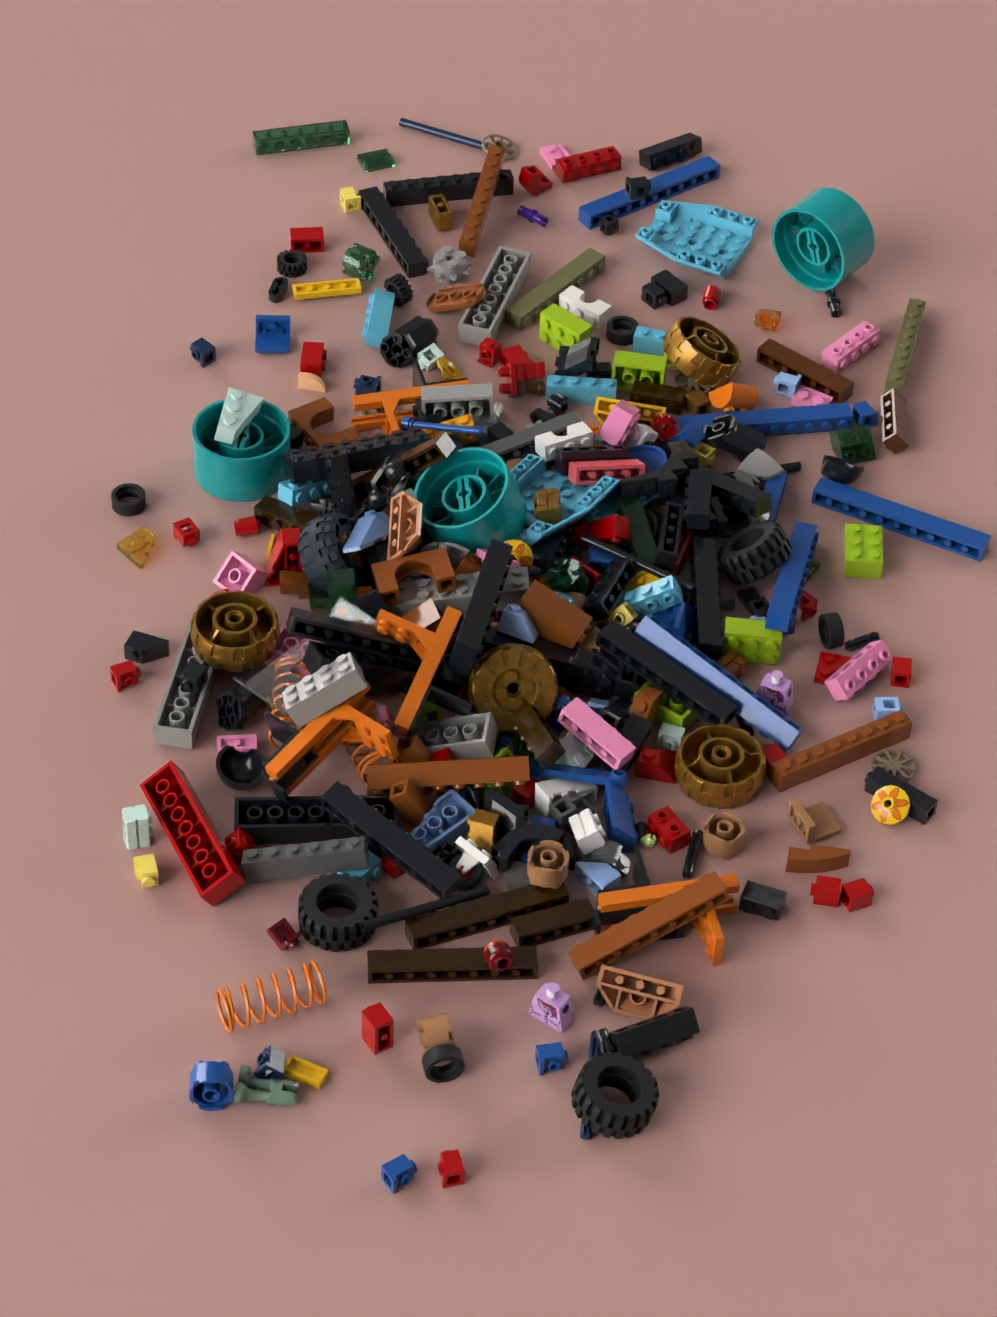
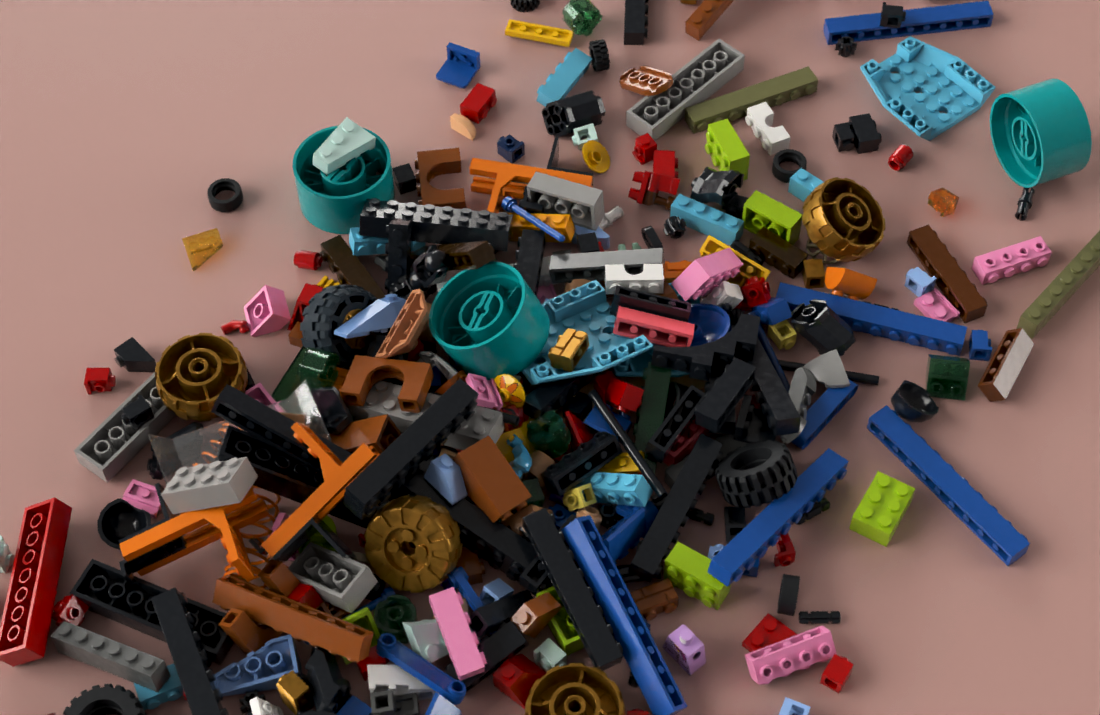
camera: 30 degrees right, 10 degrees up
(186, 537) = (250, 252): red brick -> none
(203, 352) = (387, 64): dark blue brick -> none
(278, 292) = (496, 20): black beam -> none
(449, 265) = (665, 43): light grey brick -> none
(532, 216) = (778, 14): dark purple pin -> none
(537, 734) = (399, 610): dark brown brick -> none

